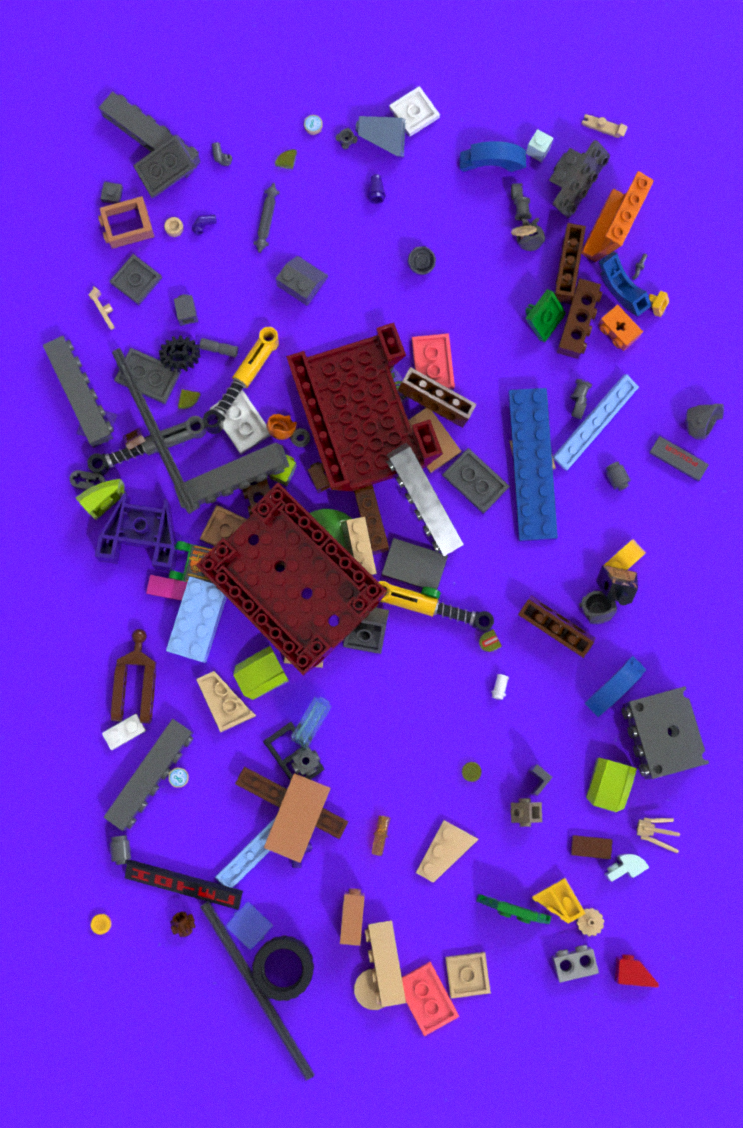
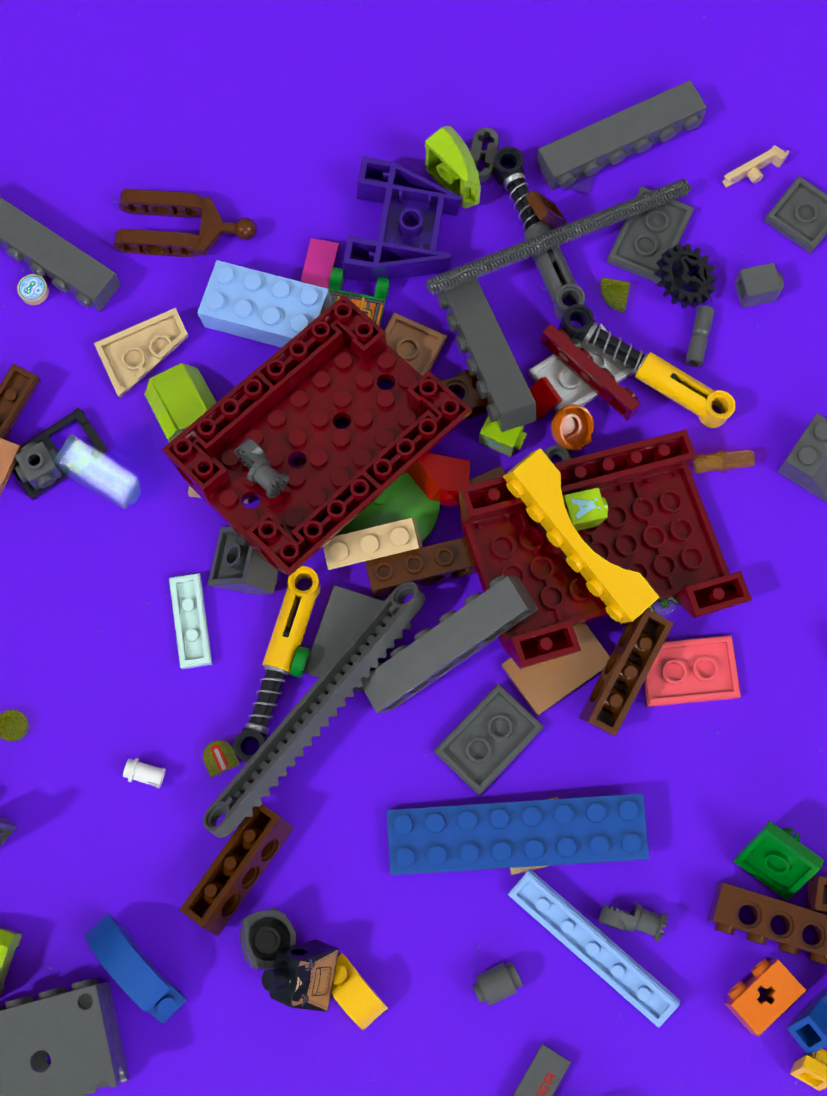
camera: 90 degrees right, 5 degrees down
(123, 732) = (104, 212): white plate -> none
(250, 408) = (582, 364): none -> dark red plate
(258, 442) = (545, 397): none -> red tile
(301, 335) = (723, 460): none -> clear yellow axle
(317, 502) = (441, 477): none -> red slope
(318, 610) = (260, 468): none -> dark grey connector
(331, 439) = (539, 487): none -> yellow arch
(341, 418) = (586, 508): none -> lime brick
(404, 663) = (190, 621): none -> light aqua tile
(462, 579) = (314, 710): none -> dark grey gear

